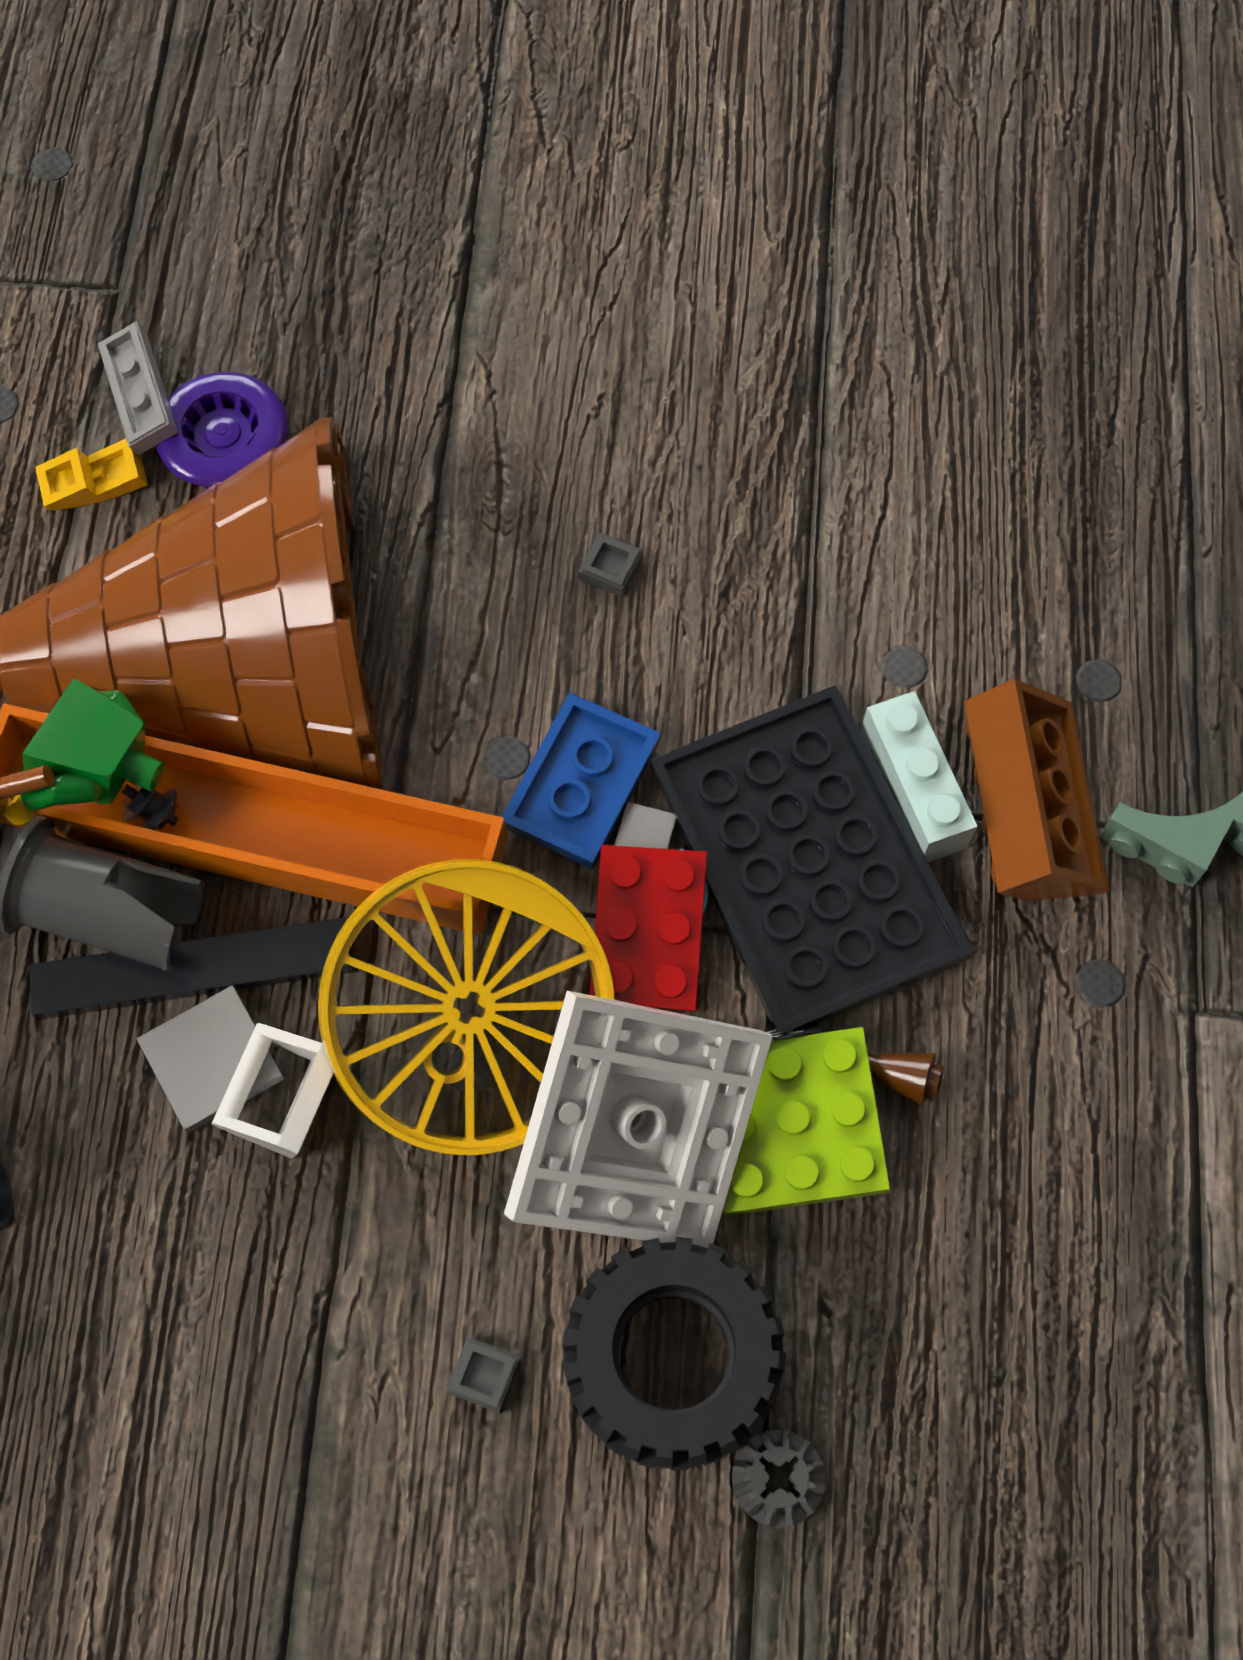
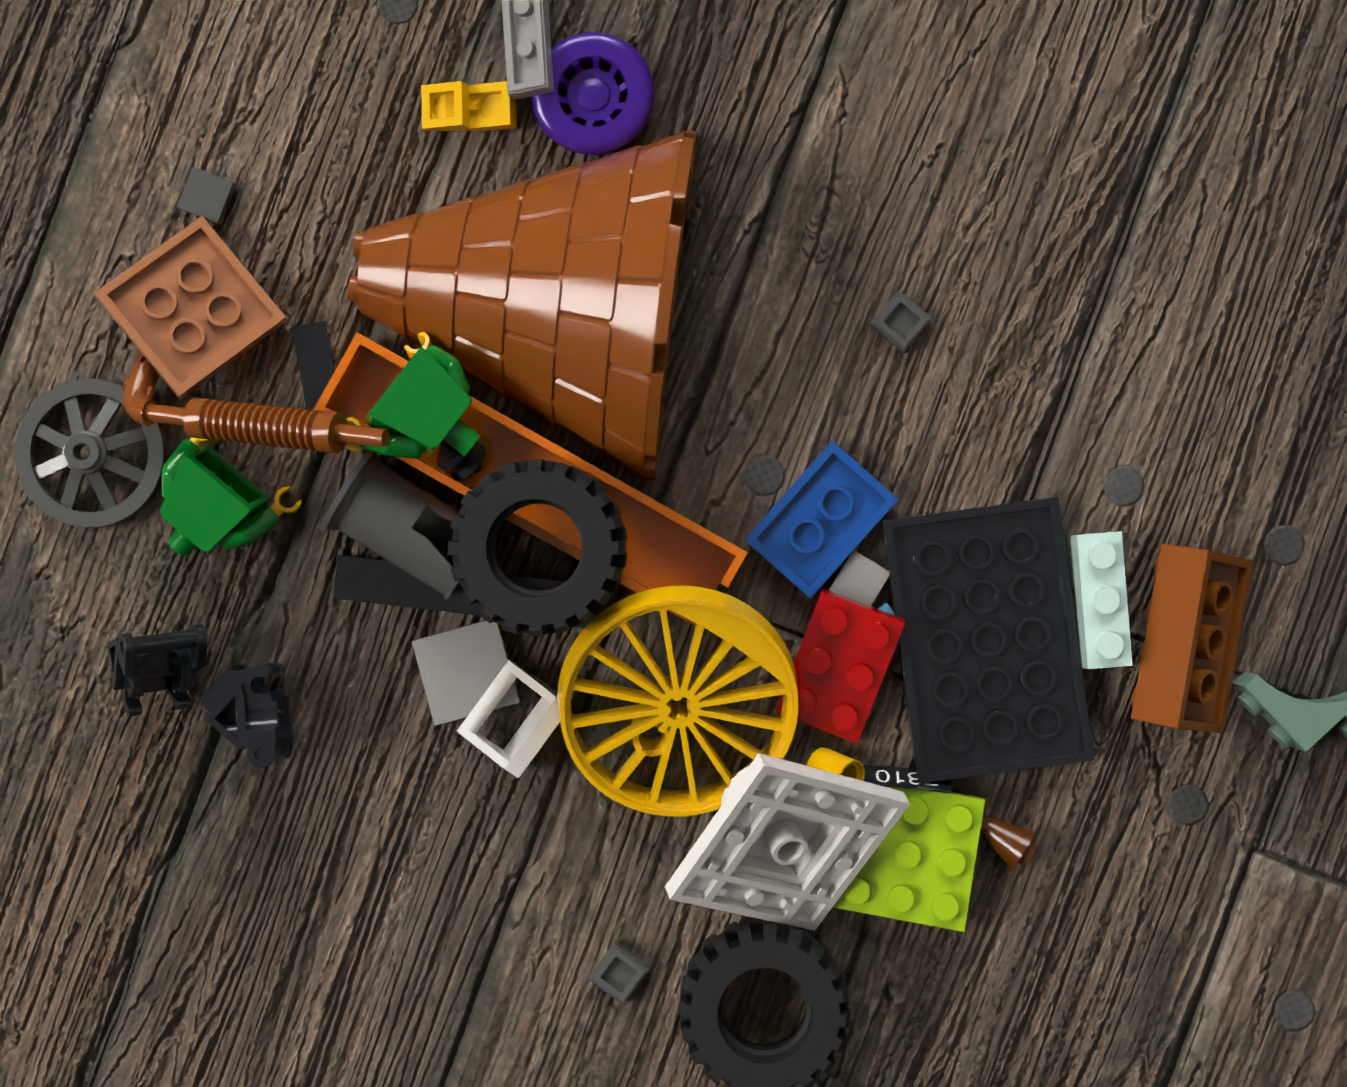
camera: 15 degrees right, 20 degrees up
(219, 802) = (476, 547): none -> black tyre

